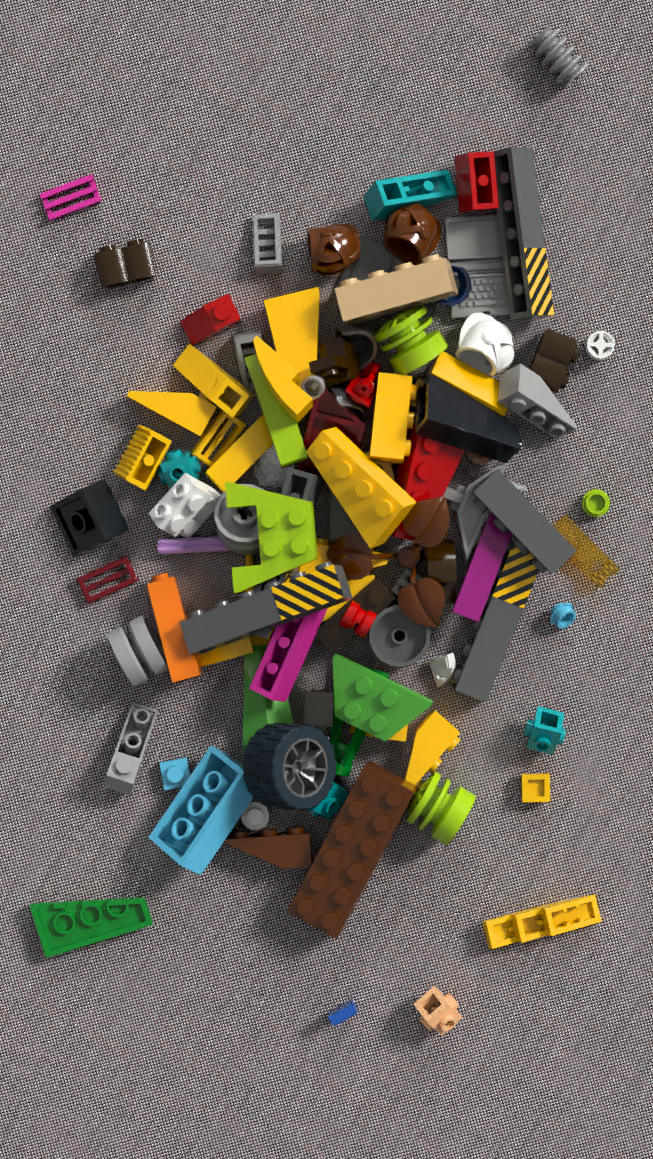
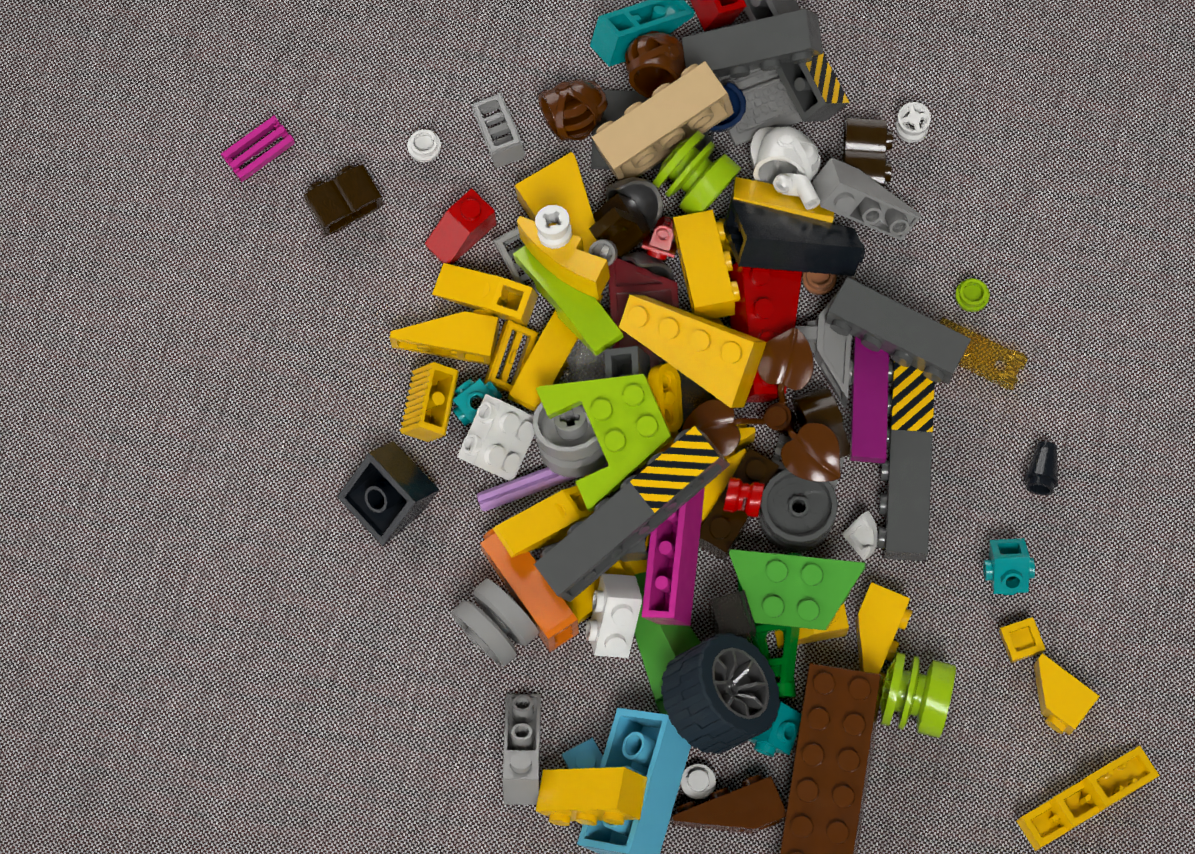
camera: 15 degrees left, 15 degrees down
(85, 589) = (410, 579): dark red tile -> none
(168, 810) = (591, 795): none -> yellow brick
(197, 587) = (543, 522): none -> yellow slope
(204, 238) = (424, 145): none -> white plate
(230, 675) = (614, 615): none -> white brick
(281, 363) = (554, 235): none -> white wheel
(326, 517) = (666, 388): none -> yellow plate
(486, 377) = (798, 186): none -> white arm
(491, 247) = (756, 44): none -> dark grey brick
(549, 841) = (1061, 696): none -> yellow slope
(562, 615) = (981, 430): medium azure plate -> none
(599, 661) = (1043, 469): none -> black cone

